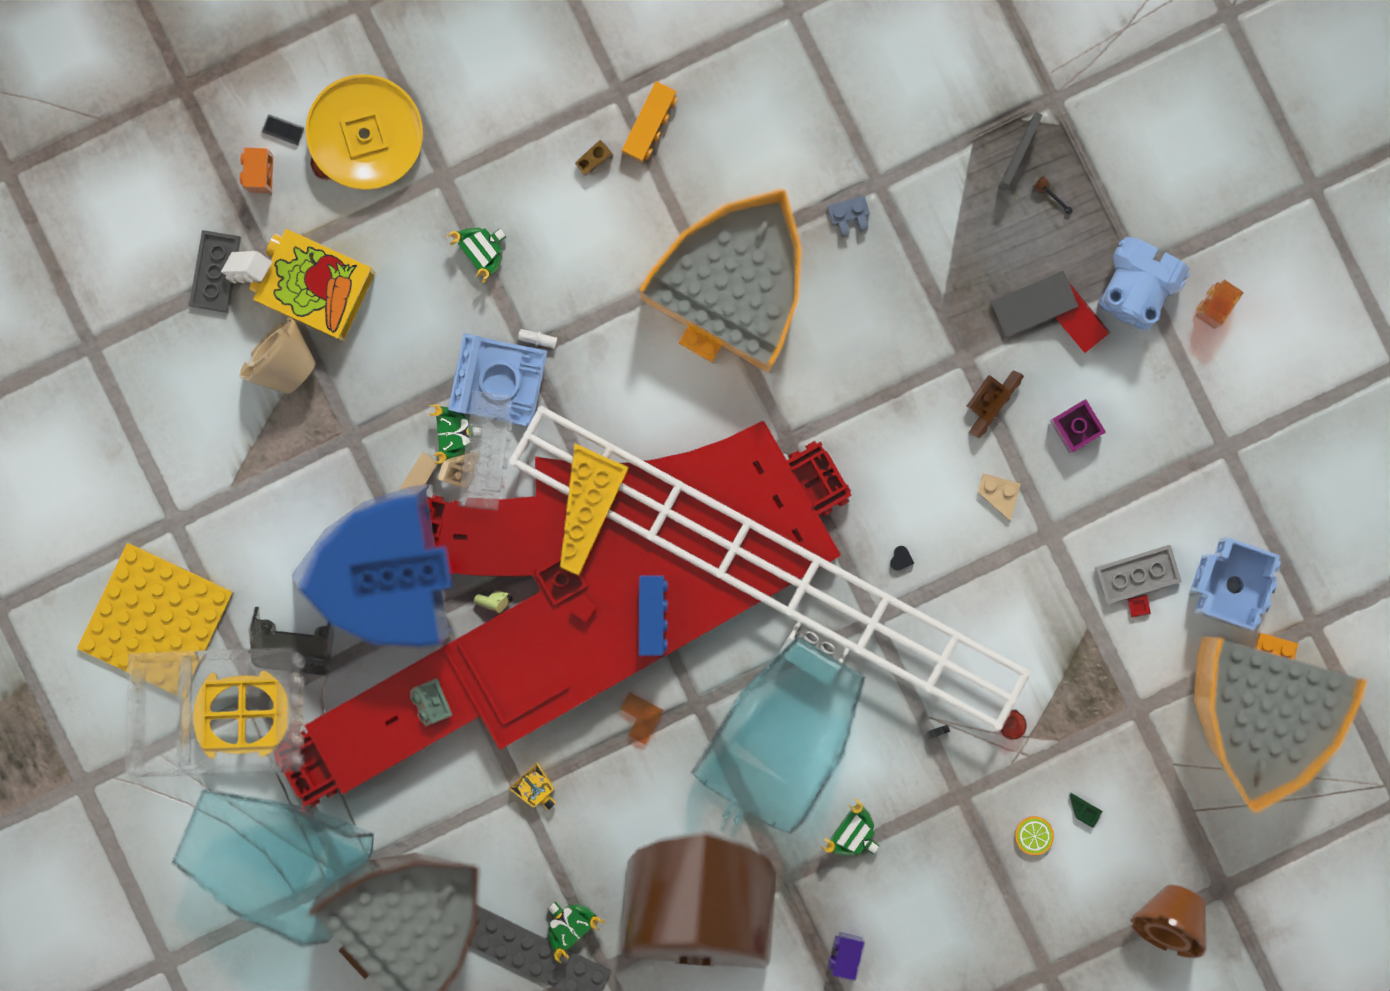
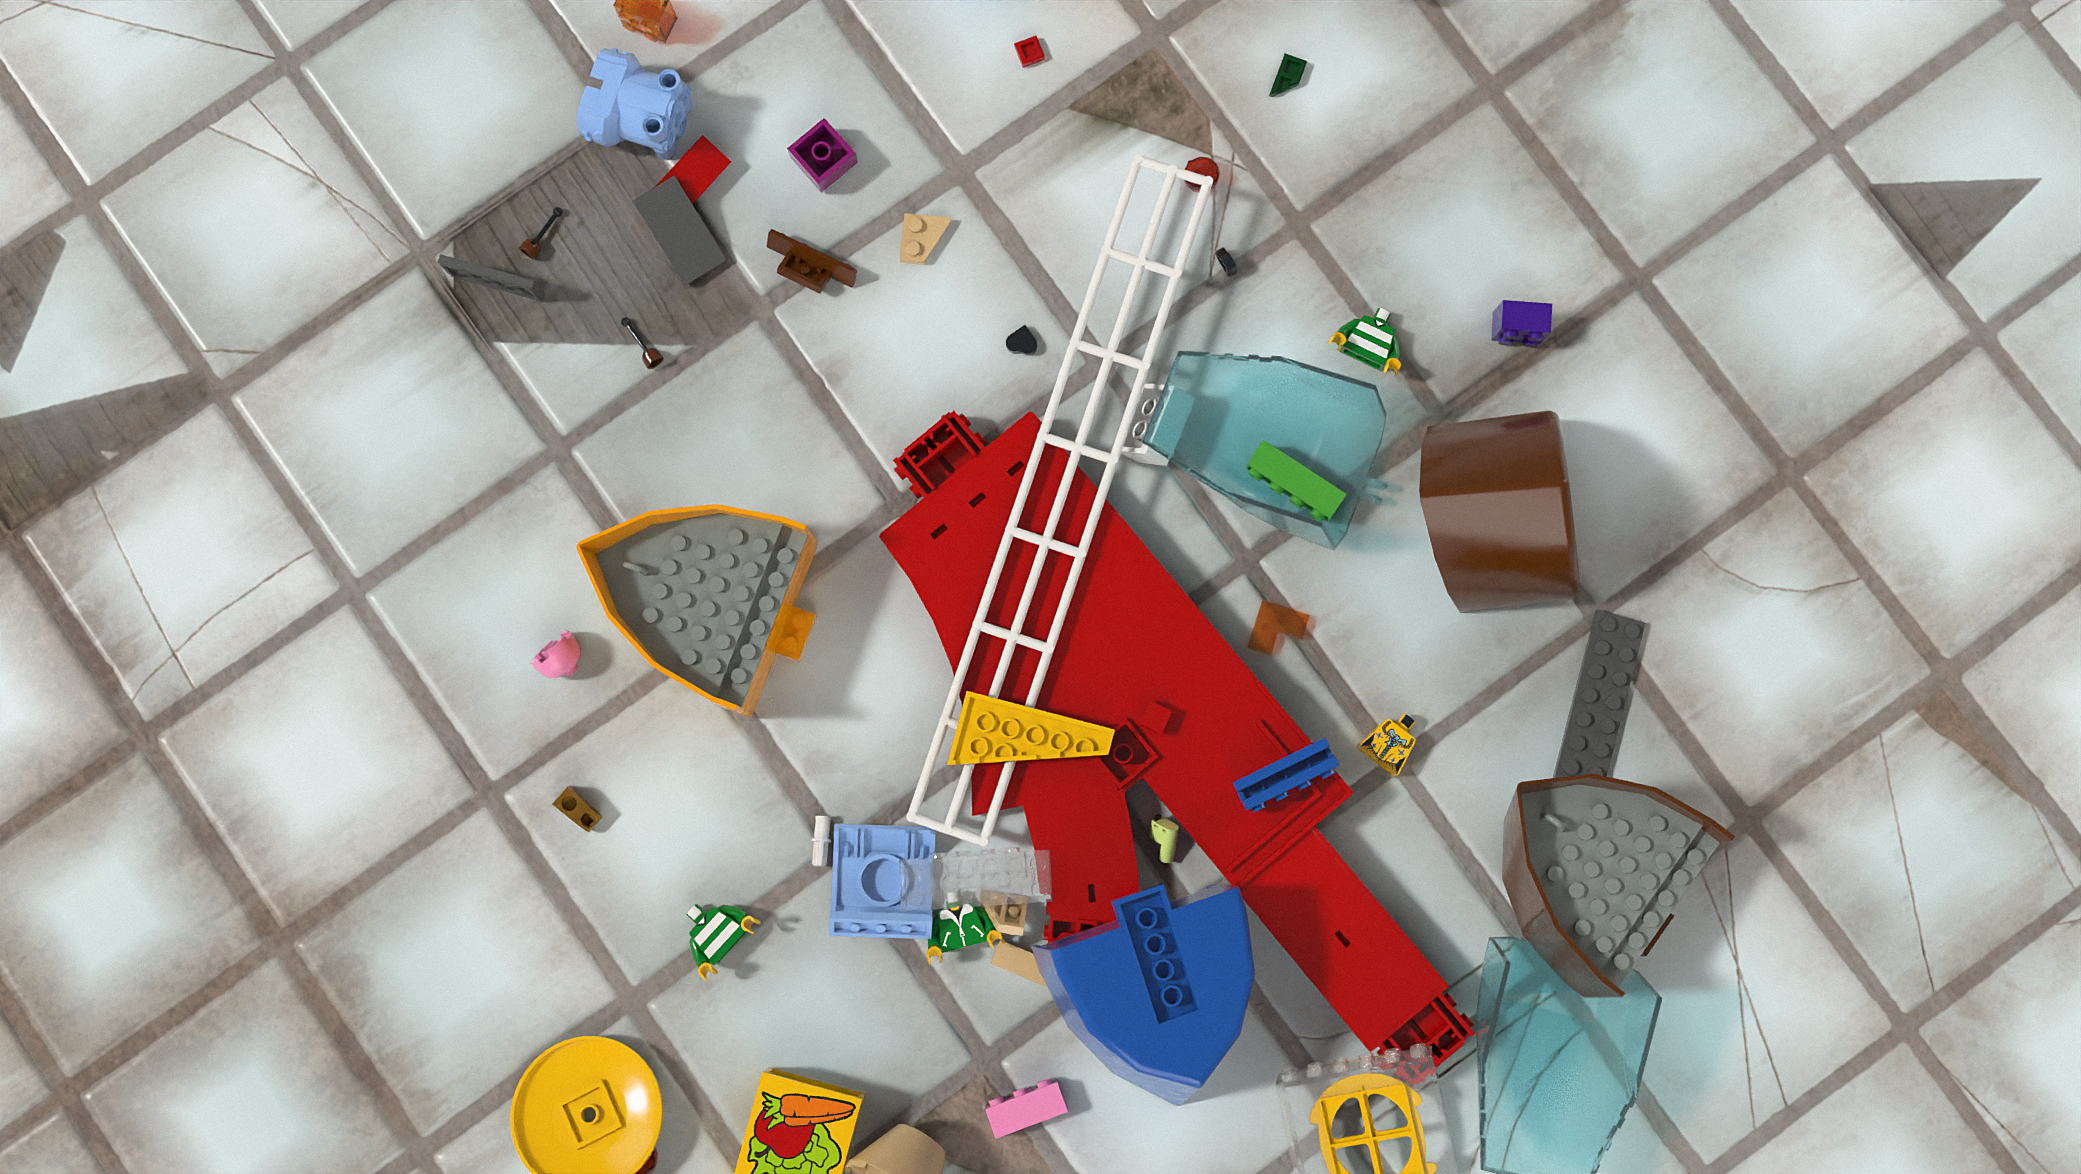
camera: 100 degrees left, 5 degrees down
(310, 460) = (1025, 1107): none -> bright pink brick
(314, 648) = (1267, 1059): clear smoke windscreen -> none
(430, 702) = (1311, 892): sand green bracket -> none
(521, 698) = (1286, 774): none -> blue brick
(569, 926) = (1553, 669): green torso -> none
(649, 122) = (521, 746): light orange brick -> none
(652, 615) = (1149, 628): blue brick -> none
(712, 160) = (558, 657): none -> bright pink cylinder
(754, 748) = (1295, 481): none -> bright green brick
(849, 210) = (597, 476): sand blue plate -> none
(938, 266) = (650, 356): none -> hinge
(1034, 835) = (1329, 128): lime tile -> none
(1138, 574) = (991, 57): light grey plate -> none

